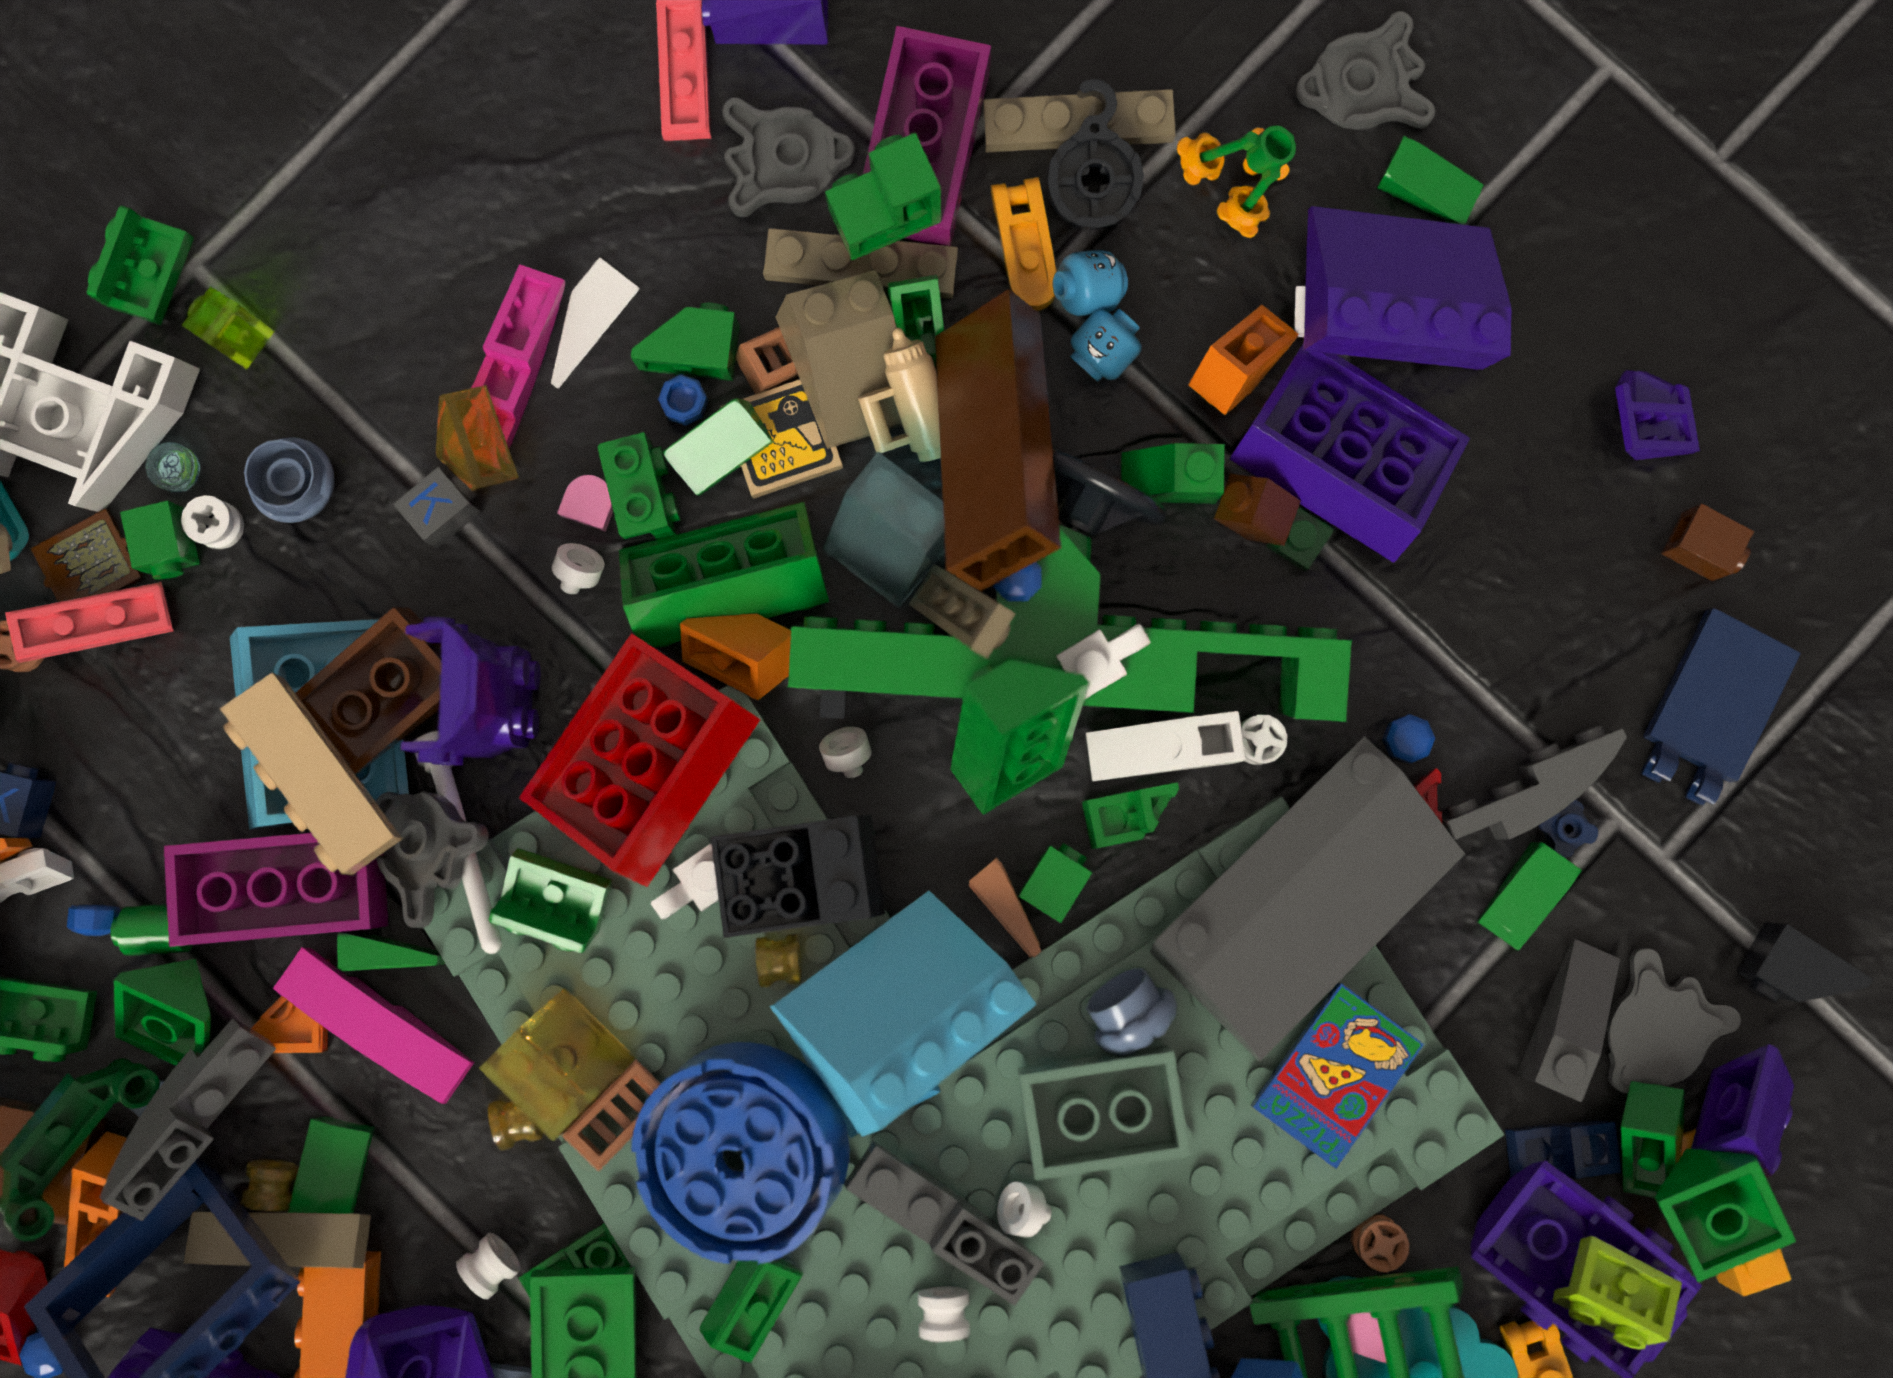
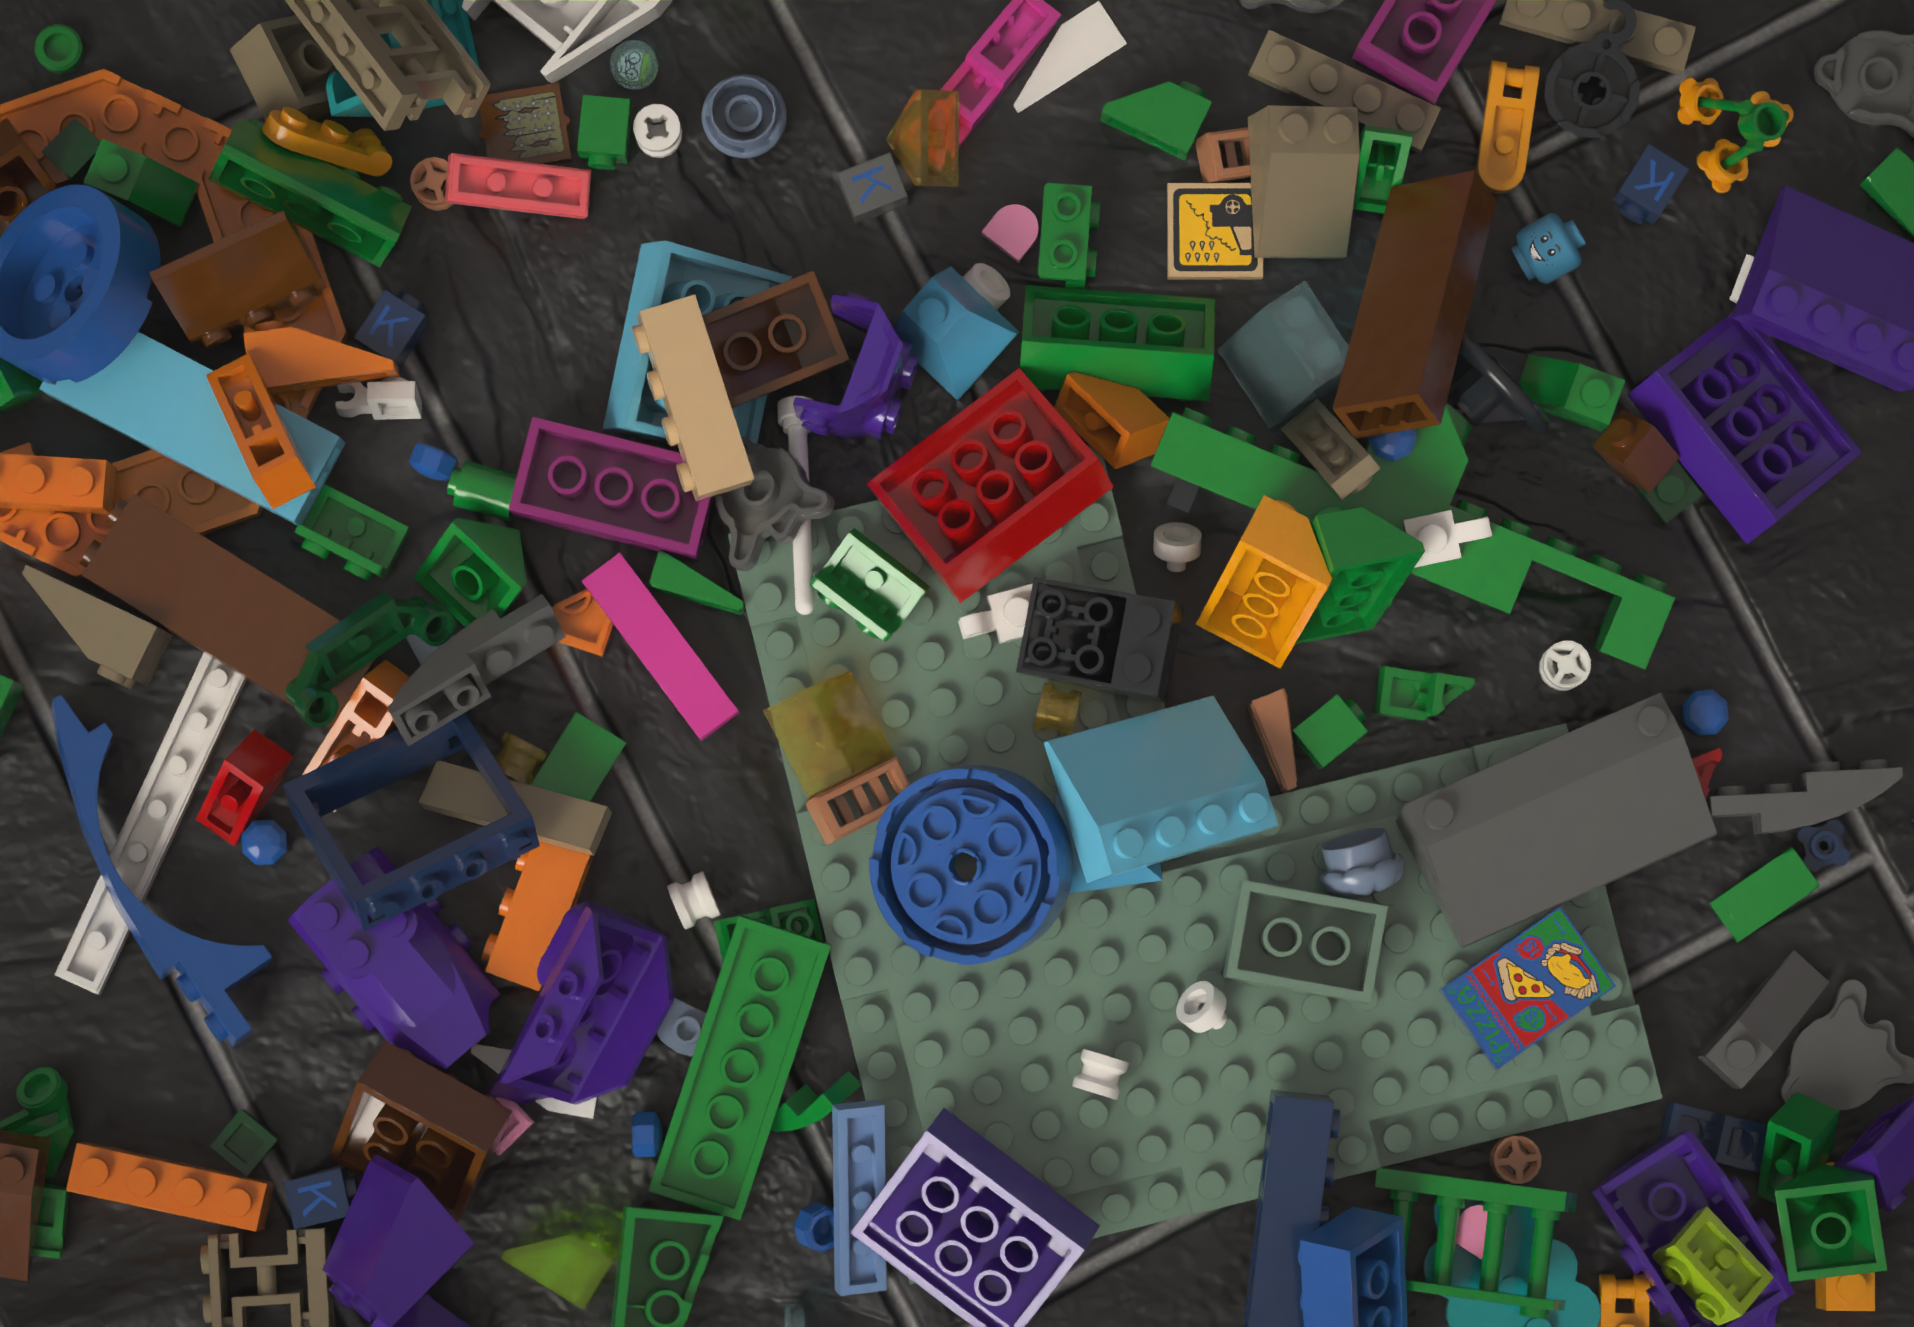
camera: 15 degrees right, 0 degrees up
(510, 1125) = (761, 777): clear yellow wheel -> none
(557, 617) = (954, 331): none -> dark azure slope
(683, 399) = (1134, 165): blue tile -> none
(718, 445) = (1154, 221): slope -> none
(749, 1306) = (927, 1008): green slope -> none
(889, 201) = (1389, 53): green brick -> none
(915, 393) = (1354, 239): tan piece -> none
(943, 762) = (1269, 584): none -> light orange slope
(944, 1221) = (1128, 993): dark grey slope -> none
(1090, 282) = (1553, 185): dark azure head -> none
(1166, 746) = (1475, 641): white slope -> none
(1181, 252) = (1649, 186): none -> dark blue brick
(1242, 359) = (1672, 305): orange slope -> none

